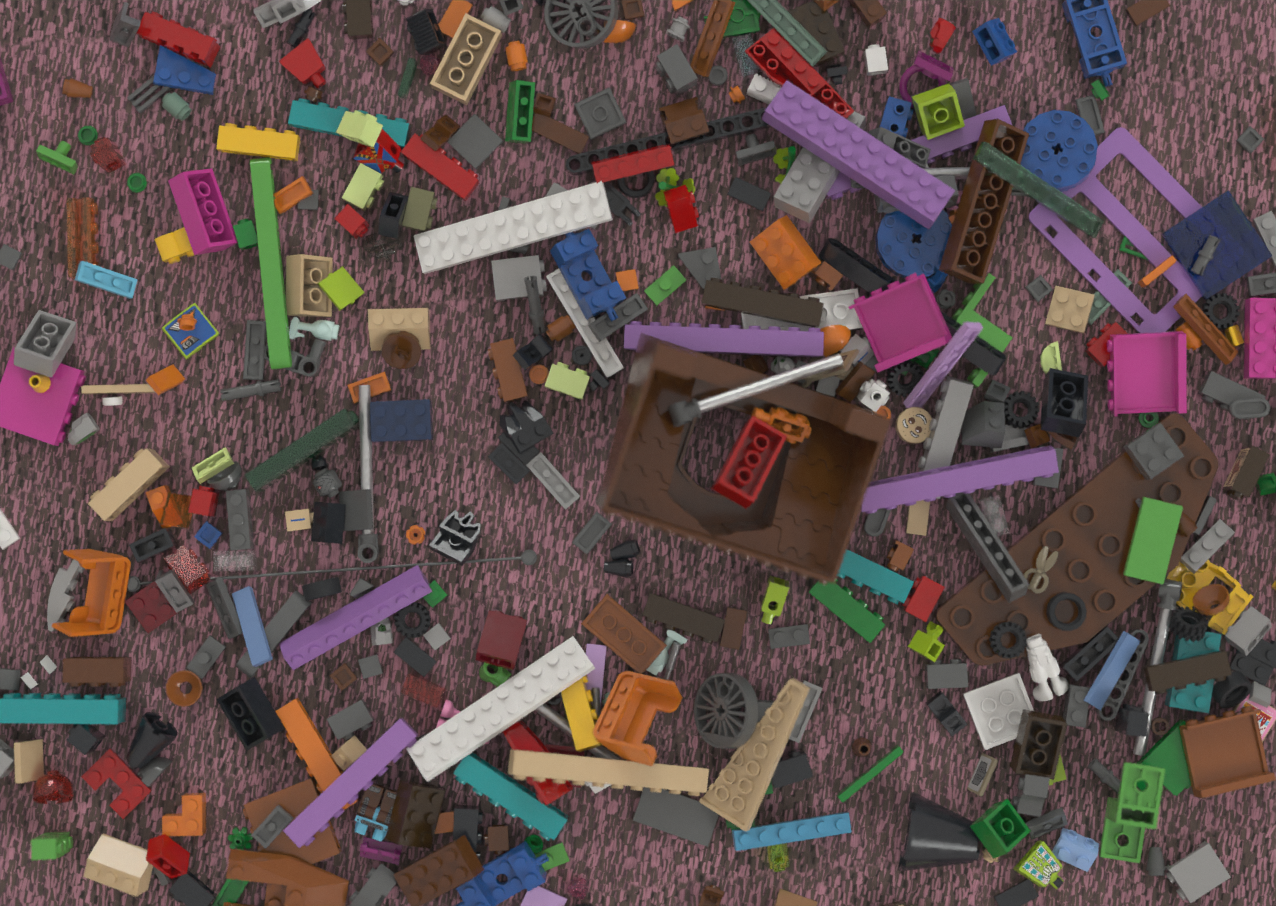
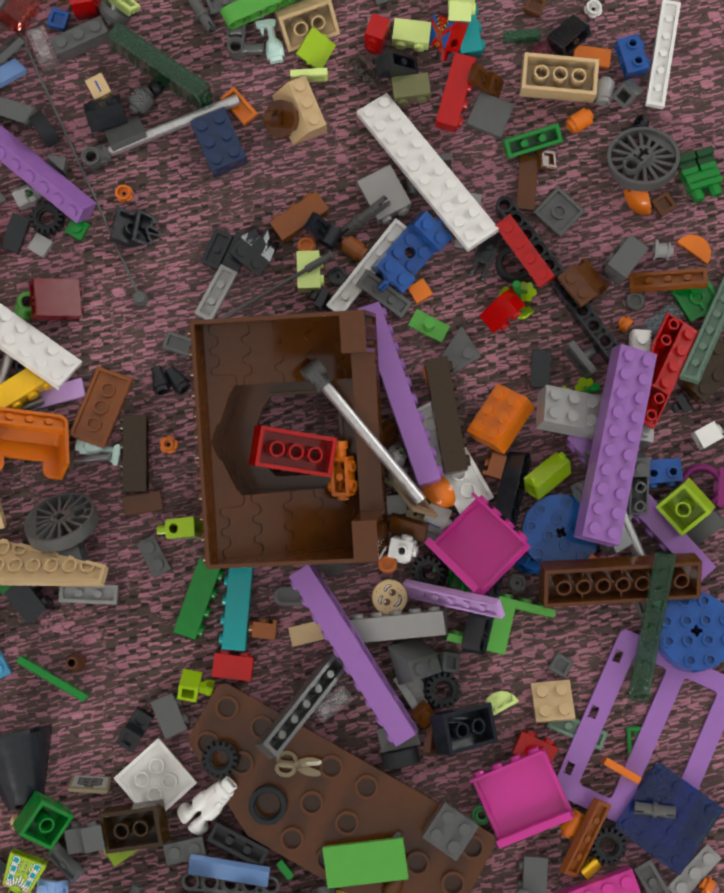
camera: 70 degrees right, 5 degrees down
(366, 304) = (312, 75): none -> yellowish green tile
(567, 381) = (308, 268): none -> dark grey piece
(680, 582) = (173, 444): none -> orange plate
(857, 229) = (547, 475): none -> lime brick
(1069, 472) = (400, 758): none -> black tyre
(1128, 619) = (285, 868): none -> green tile

